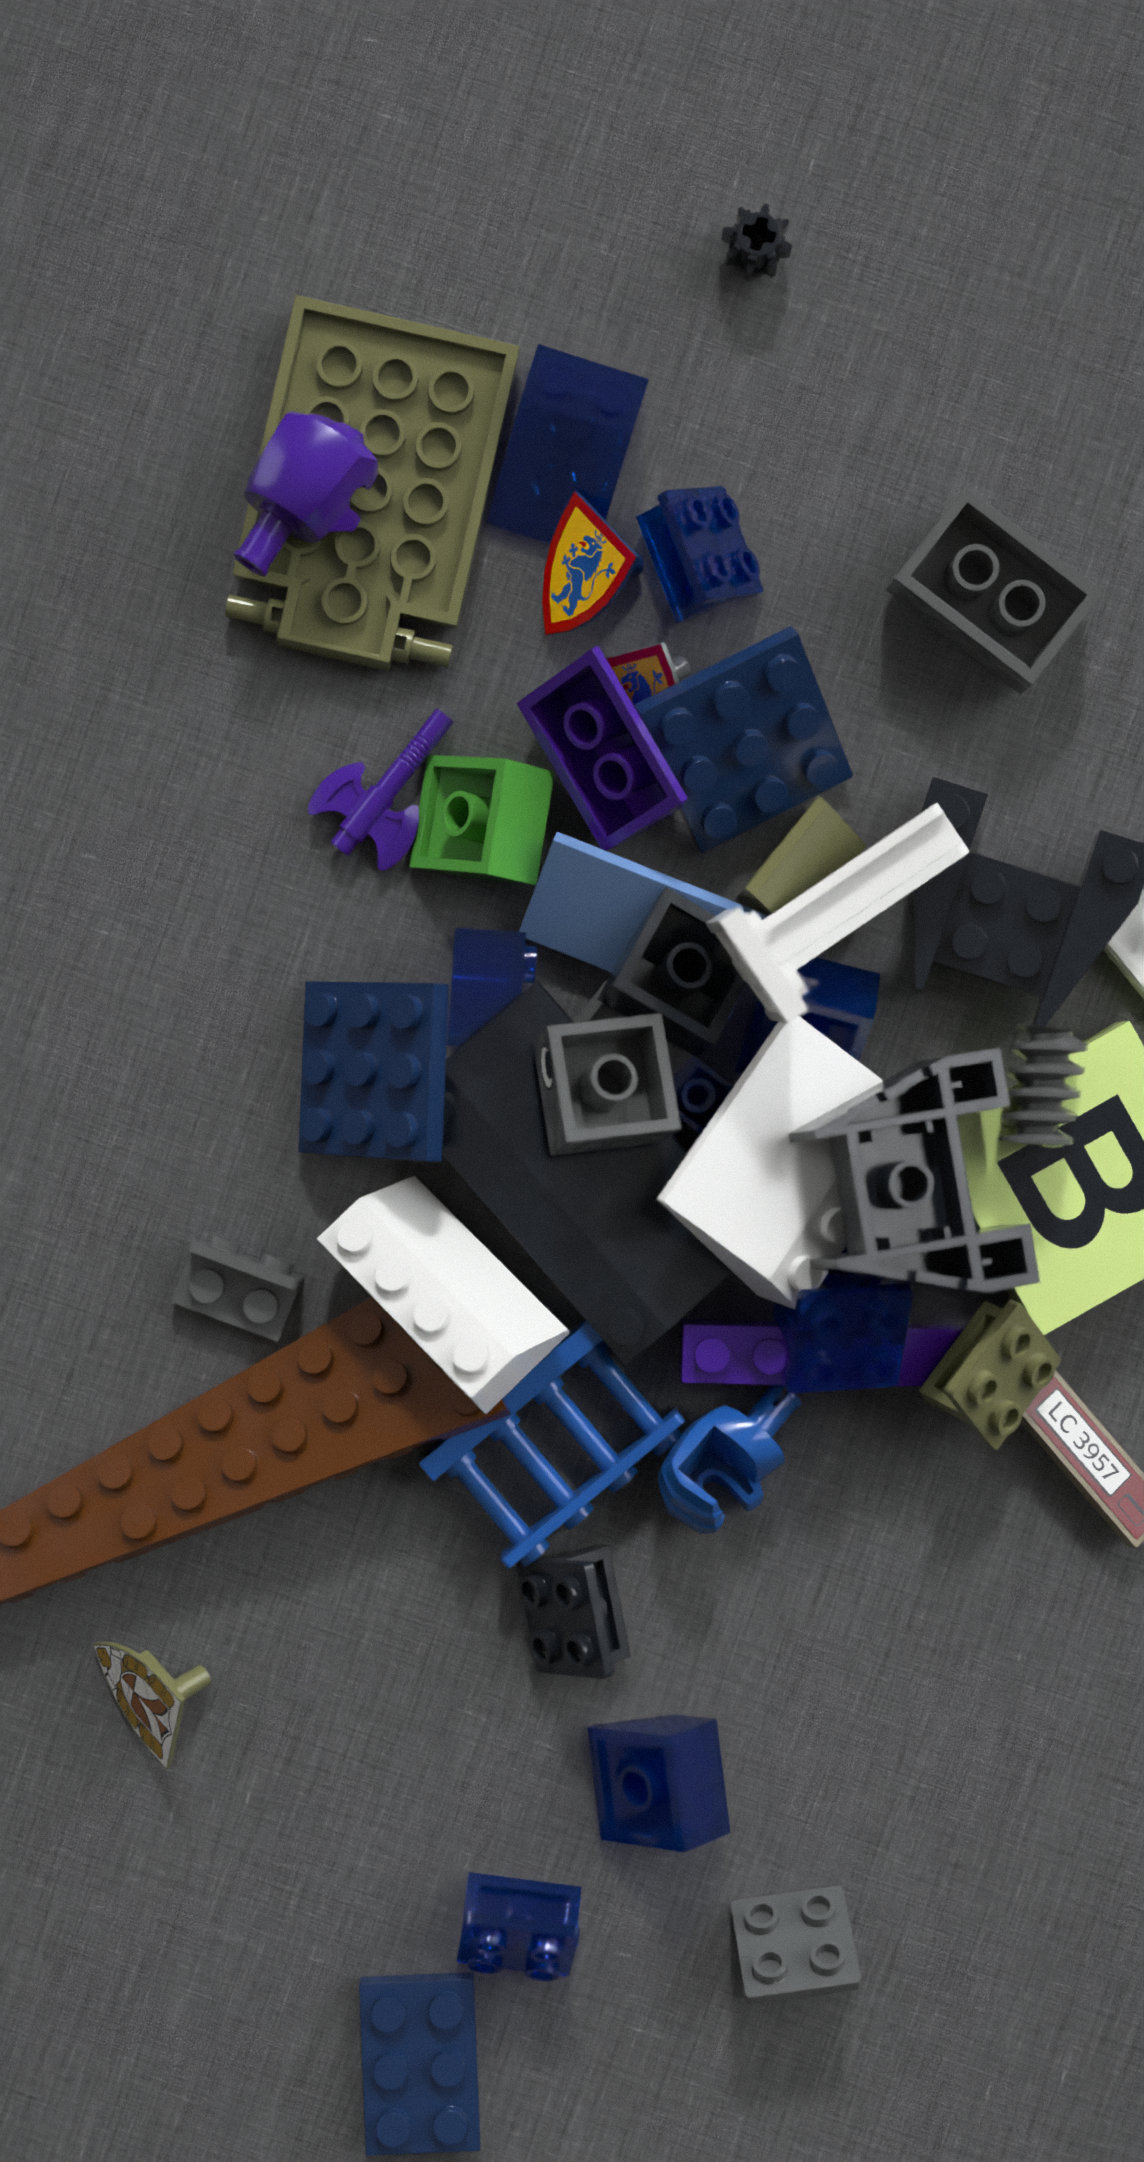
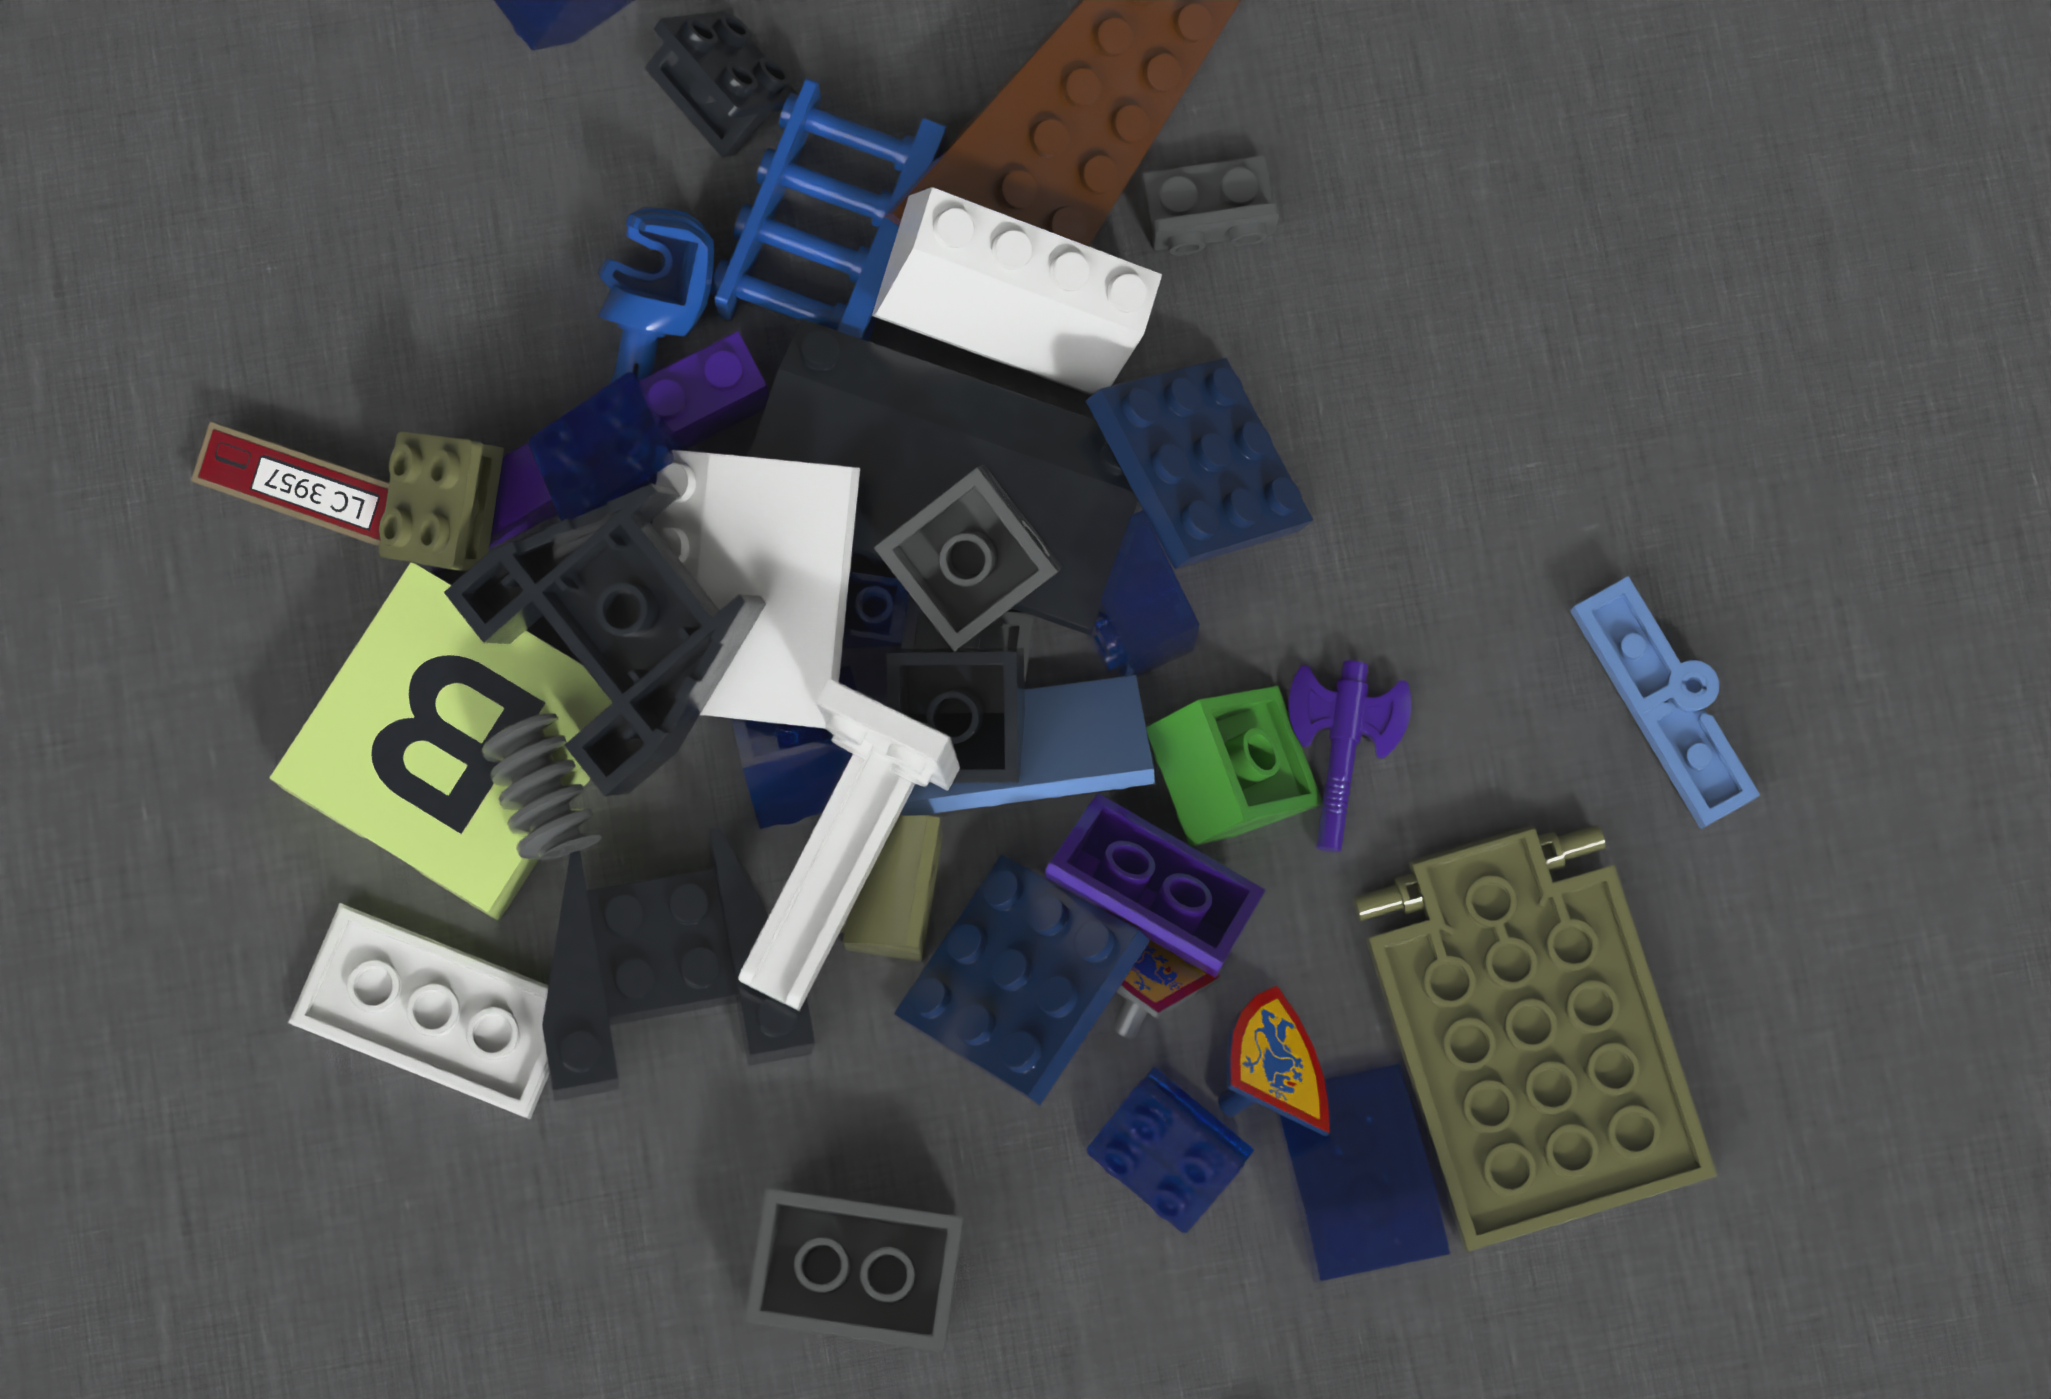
camera: 150 degrees right, 10 degrees down
(113, 680) = (1666, 701): none -> medium blue hinge
(304, 485) = (1594, 980): dark purple piece -> none

